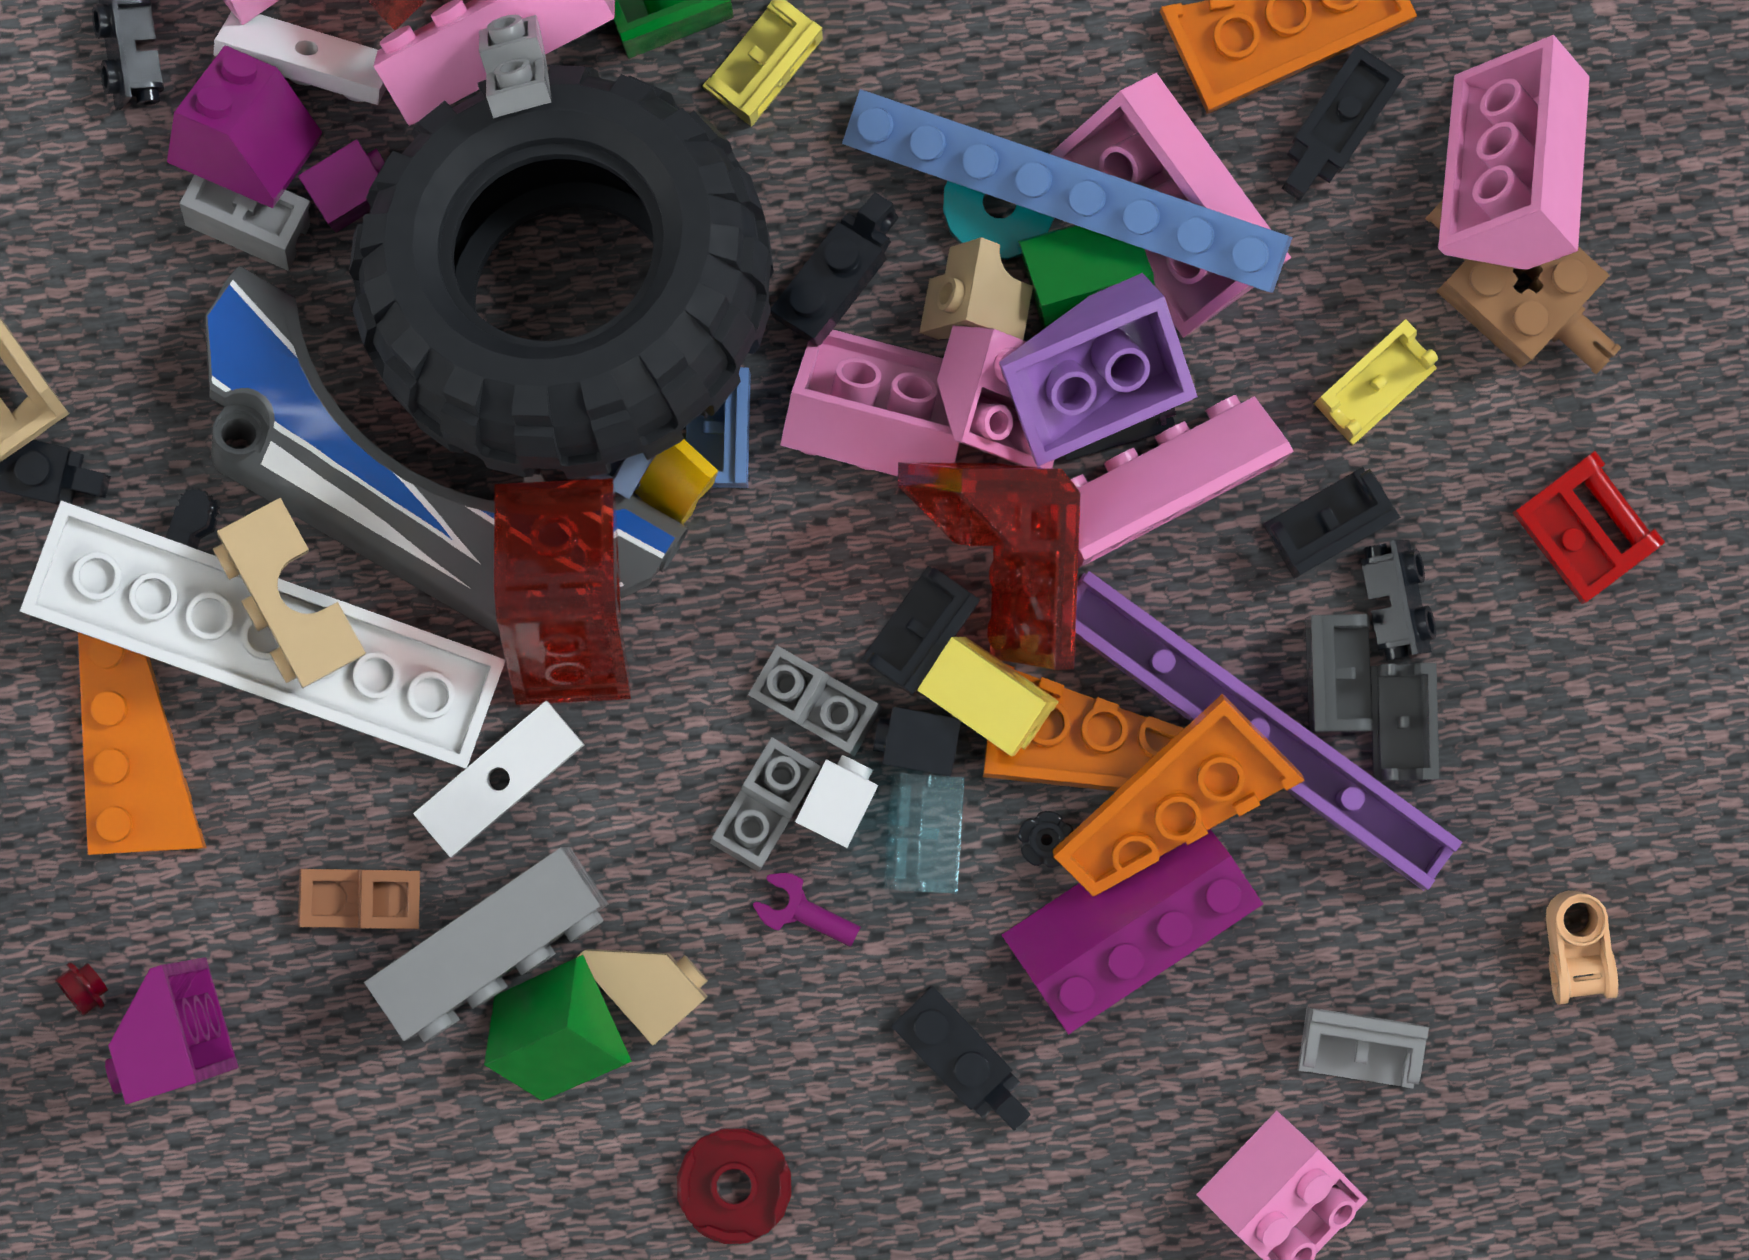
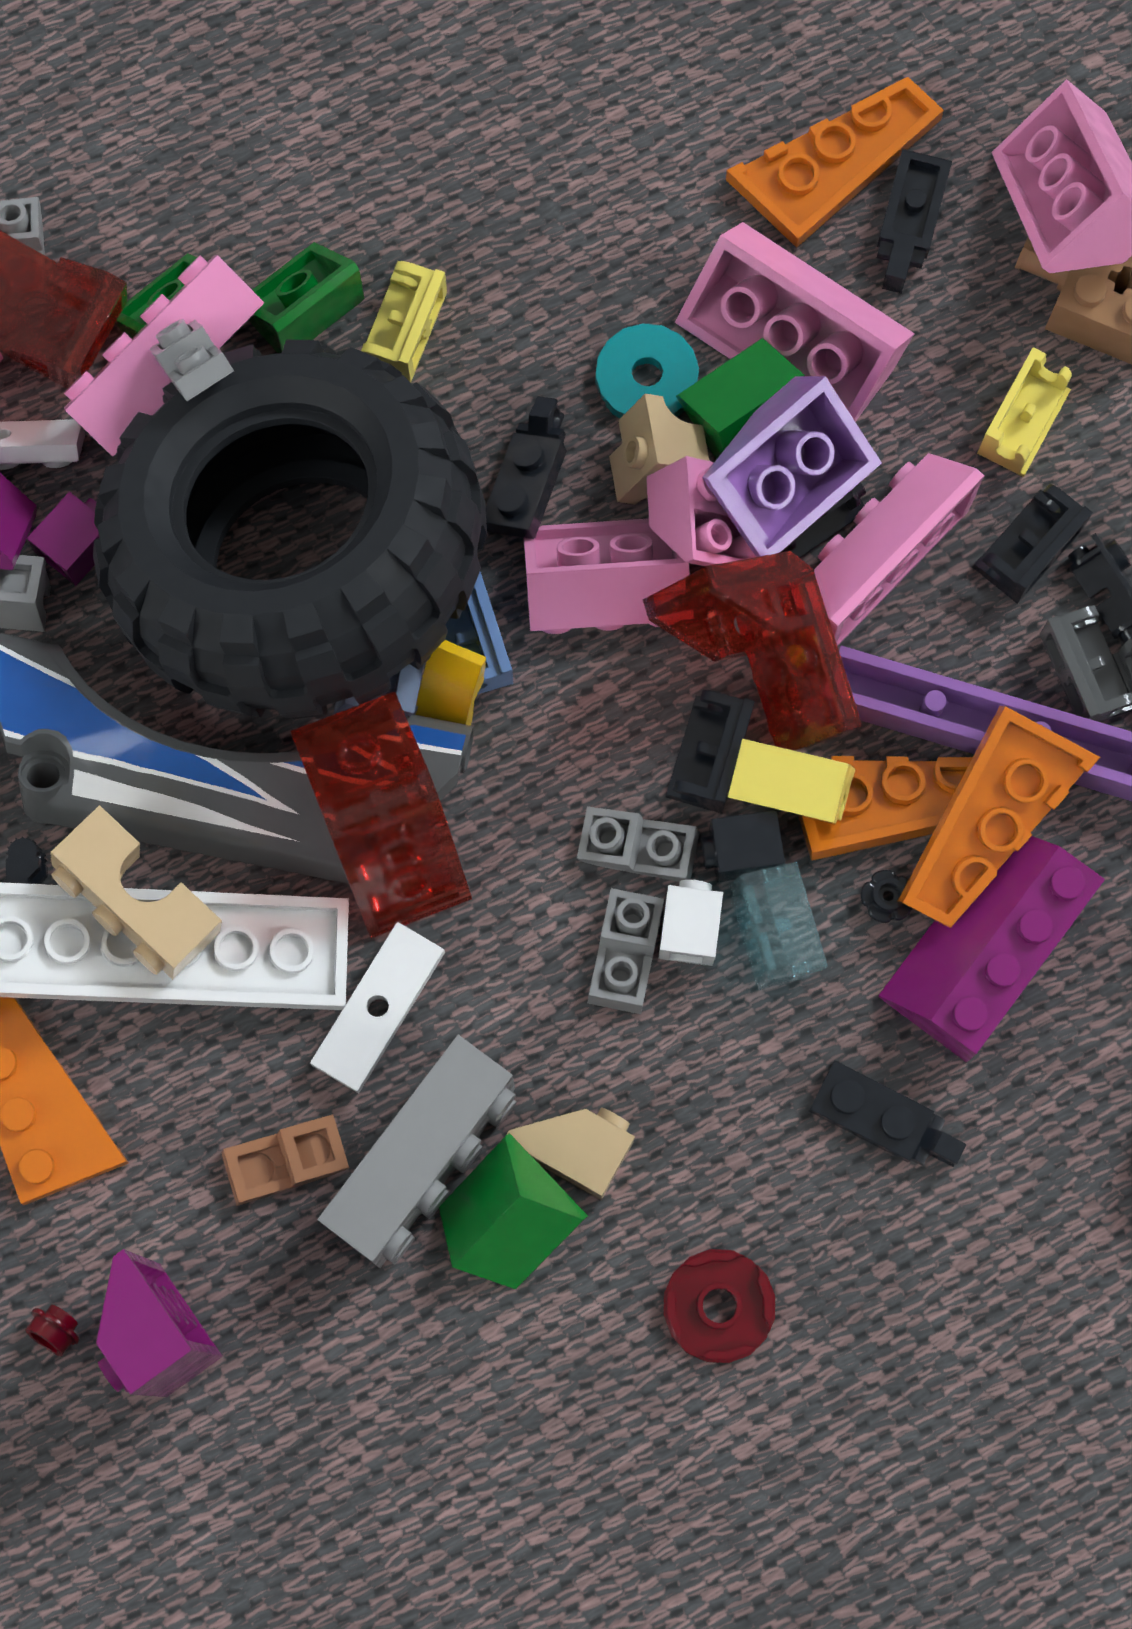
camera: 20 degrees left, 10 degrees down
(804, 911) = (693, 1034): magenta bar -> none
(1067, 191) = (705, 335): medium blue plate -> none

